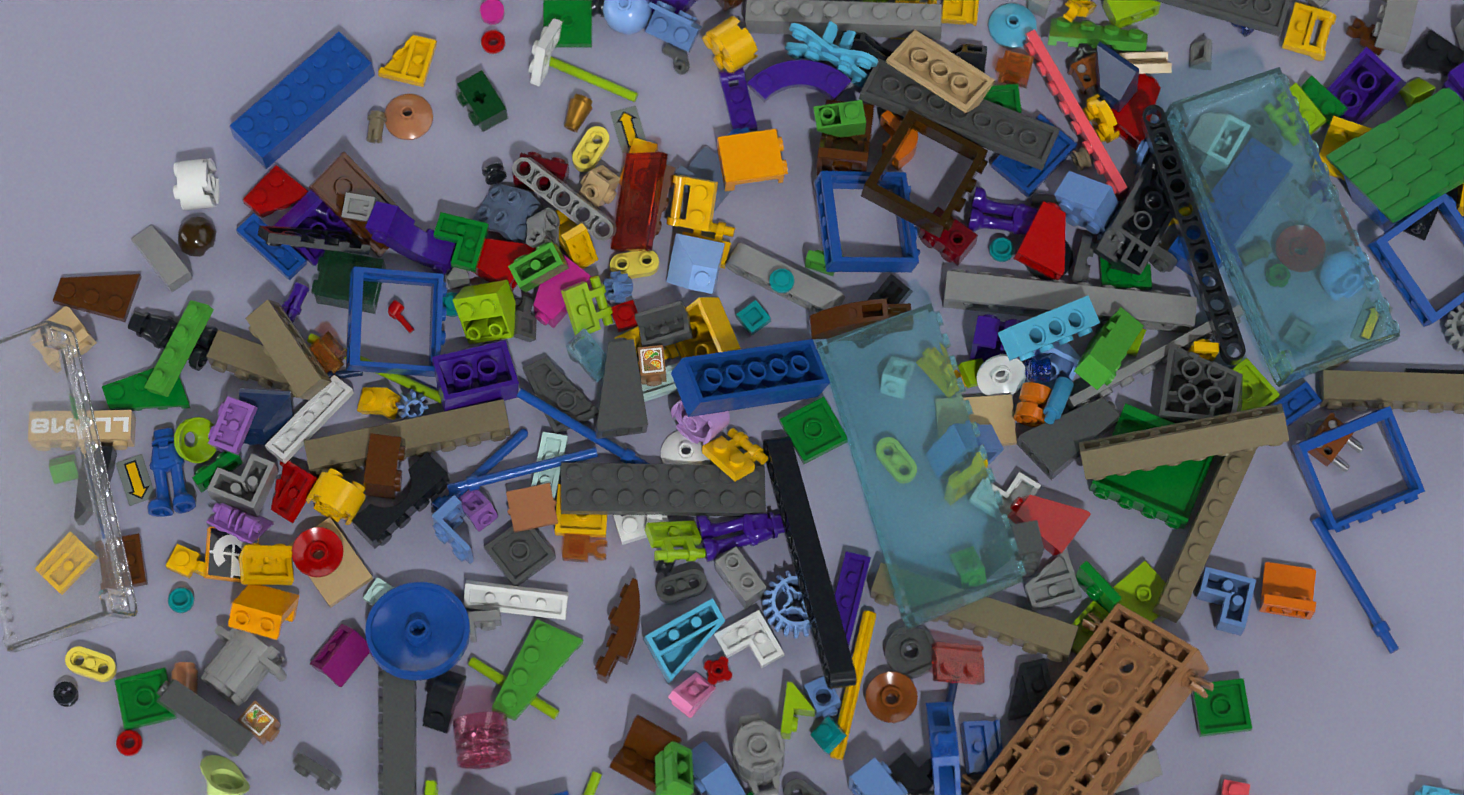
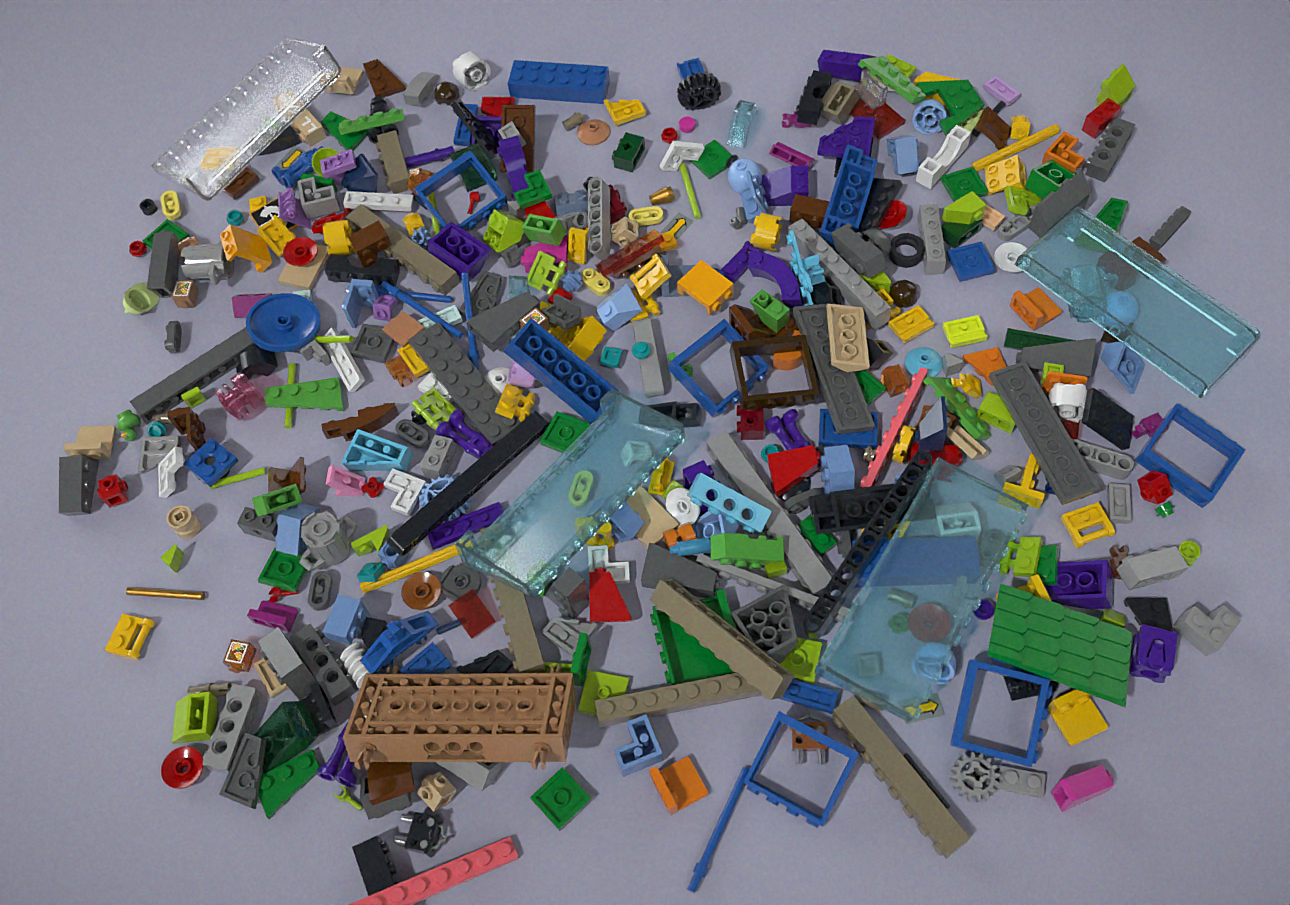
camera: 60 degrees right, 10 degrees down
(288, 350) = (402, 159): dark tan brick -> none
(488, 589) = (334, 339): none -> lime bar
(852, 316) = (648, 397): reddish brown slope -> none
(1038, 369) = (700, 520): clear blue wheel -> none
(1205, 349) = (799, 609): yellow plate -> none
(1227, 48) = (1024, 491): none -> yellow bracket

